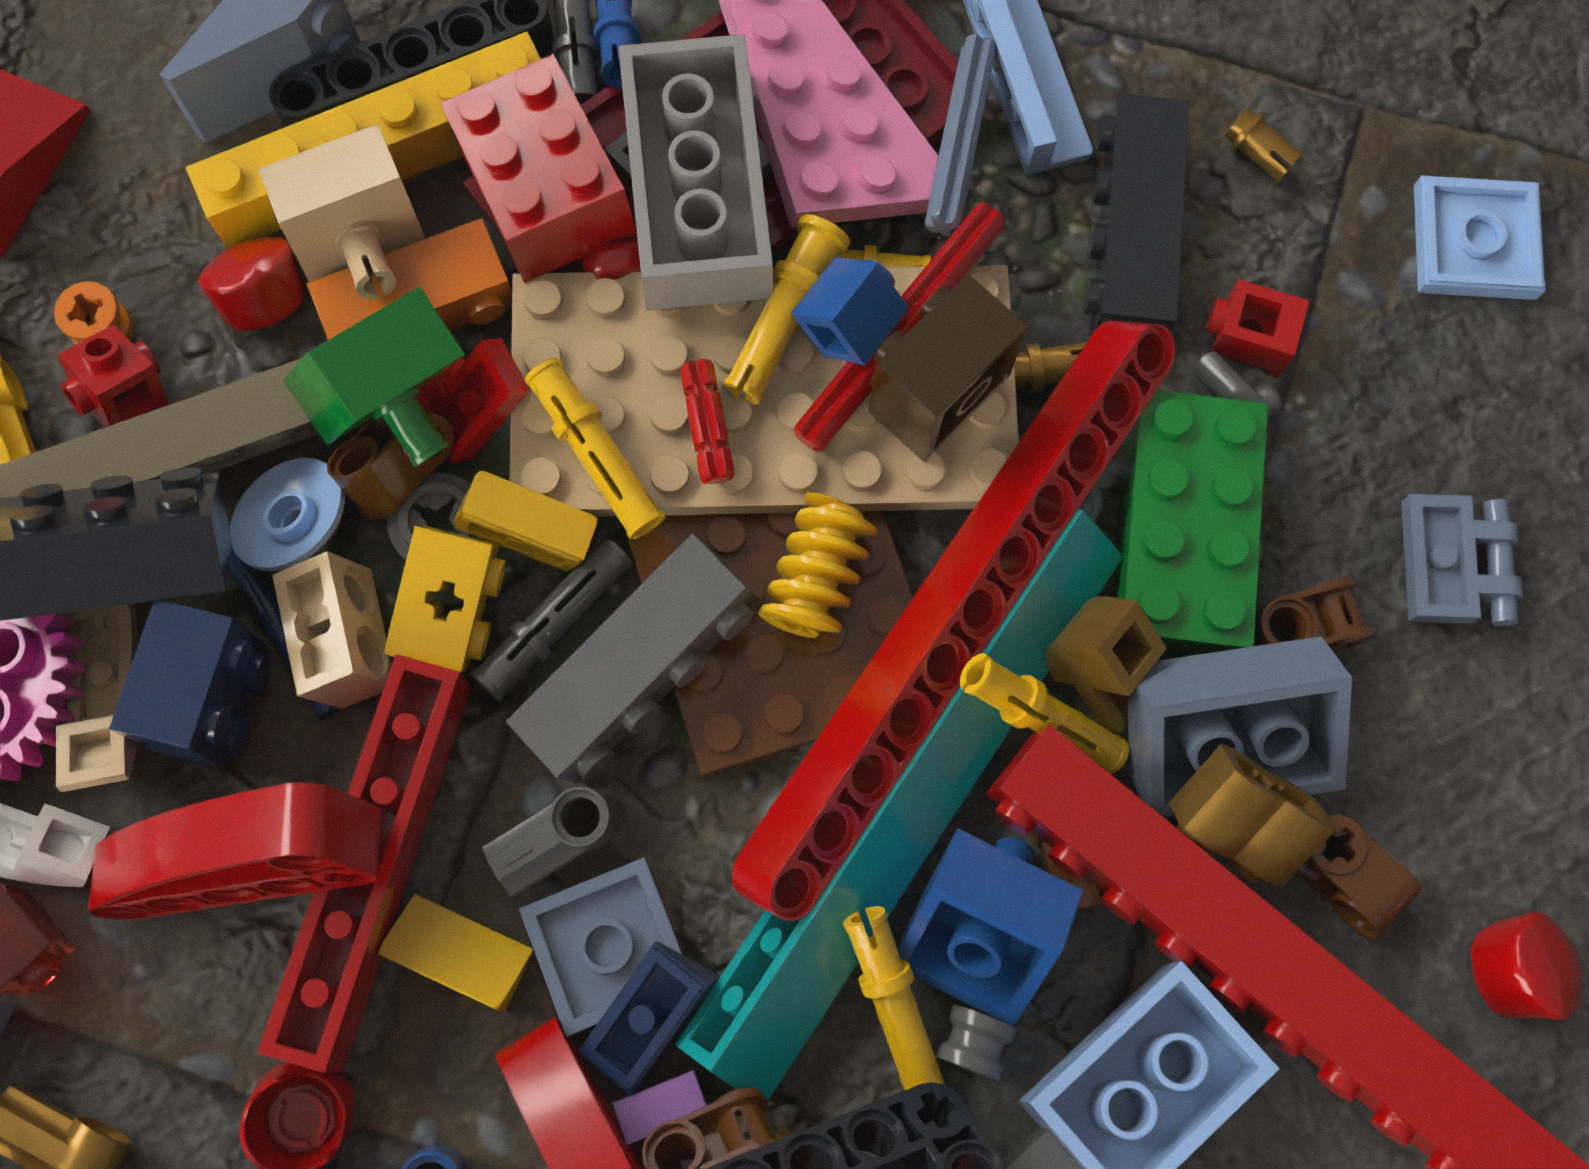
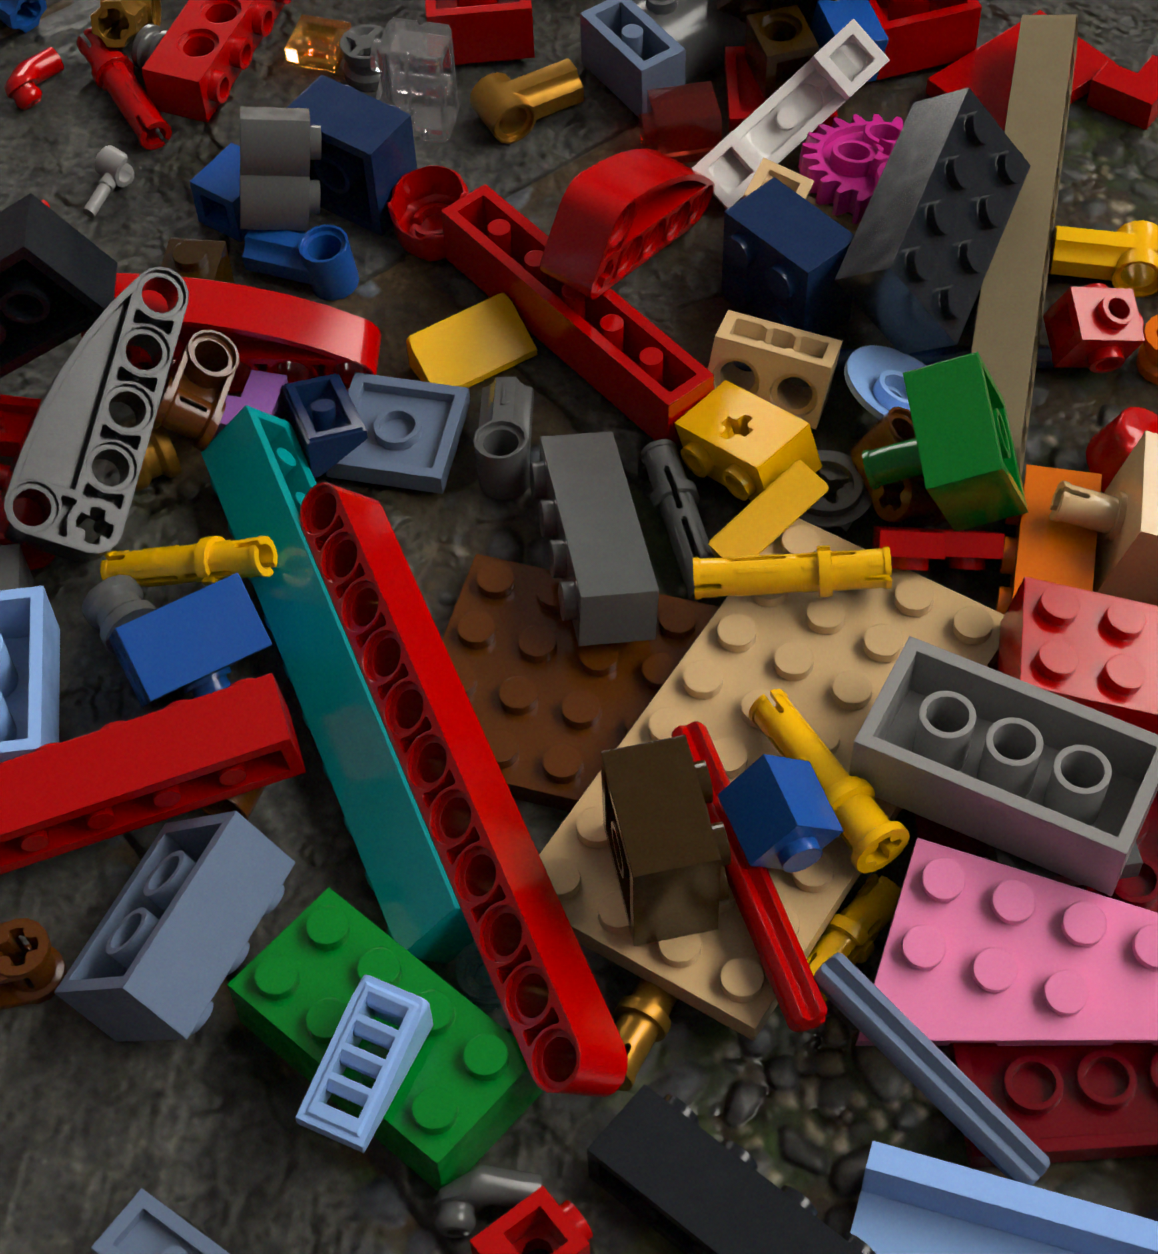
camera: 130 degrees right, 20 degrees down
(707, 421) = (759, 667): red axle -> none
(817, 567) = (569, 691): yellow piece -> none
(1026, 703) = (327, 770): yellow pin -> none
(1105, 656) = (319, 847): pearl gold brick -> none
(1211, 508) = (369, 1000): none -> light blue slope
(1250, 817) = (89, 881): pearl gold brick -> none
(1321, 611) = (210, 1102): reddish brown piece -> none

